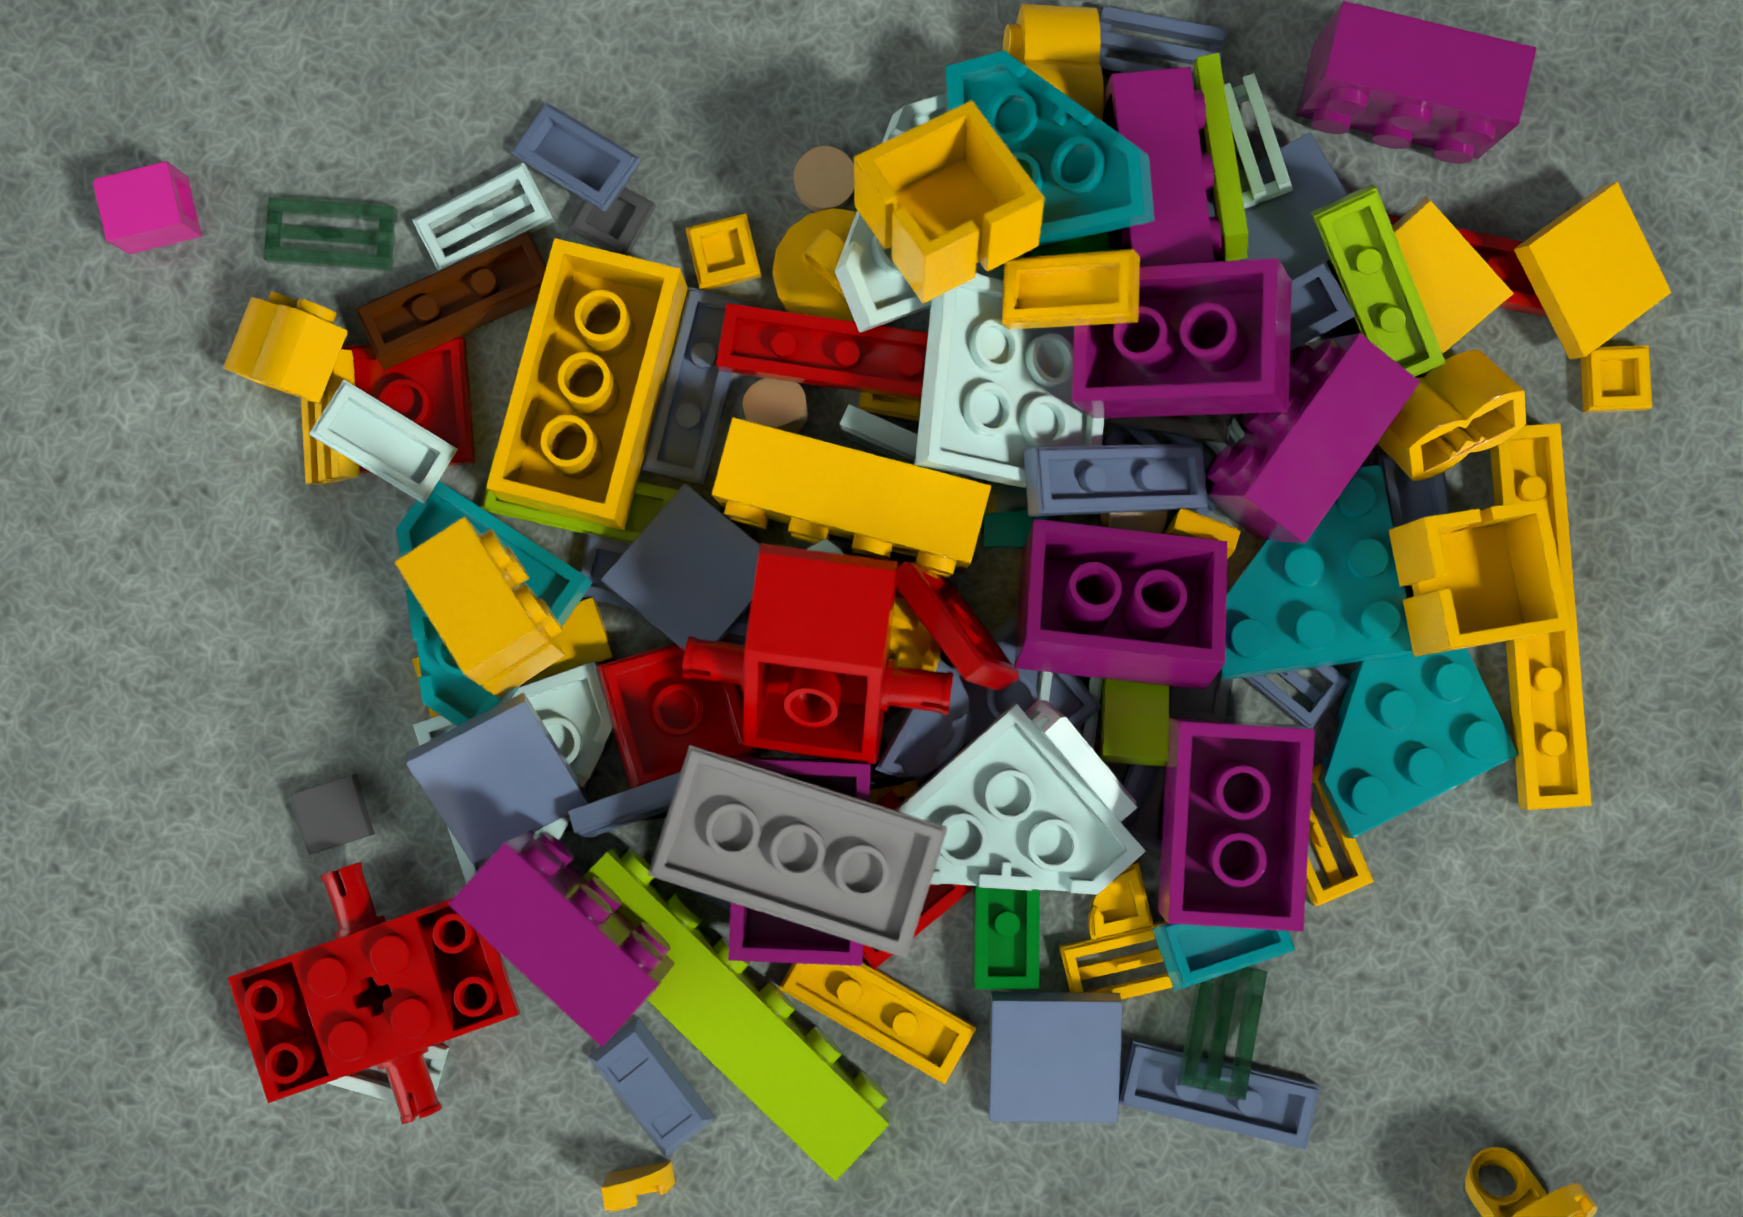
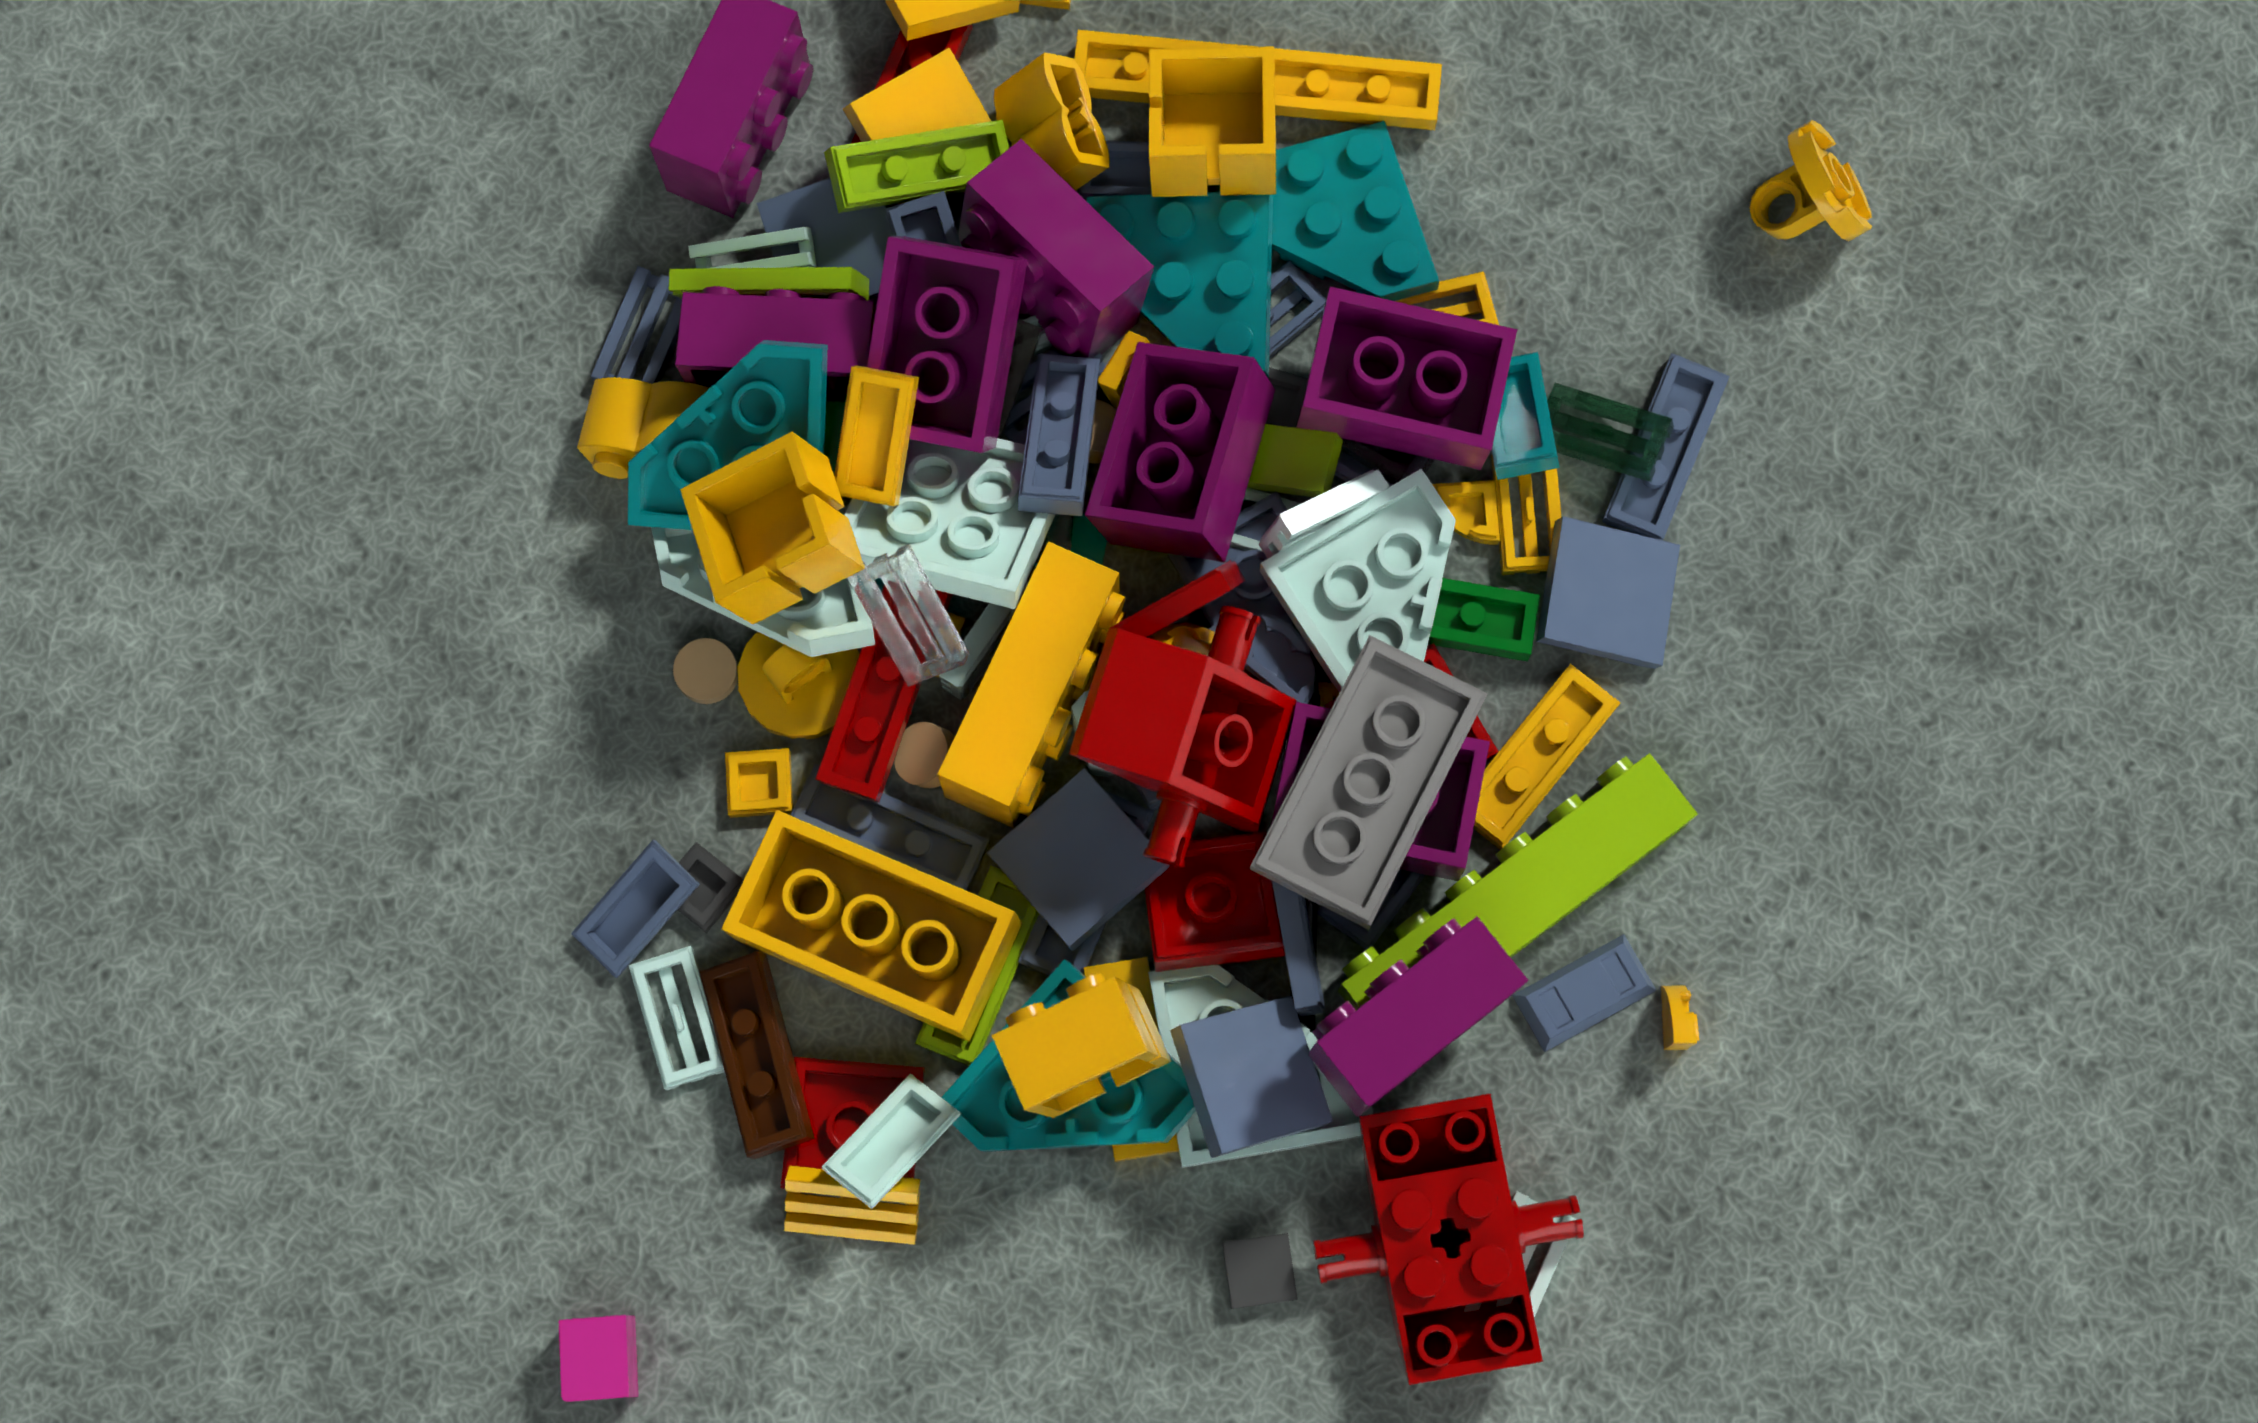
camera: 80 degrees left, 10 degrees down
(287, 345) = (775, 1227): yellow brick -> none
(383, 239) = (686, 1184): clear green tile -> none
(896, 368) = (929, 604): none -> clear tile

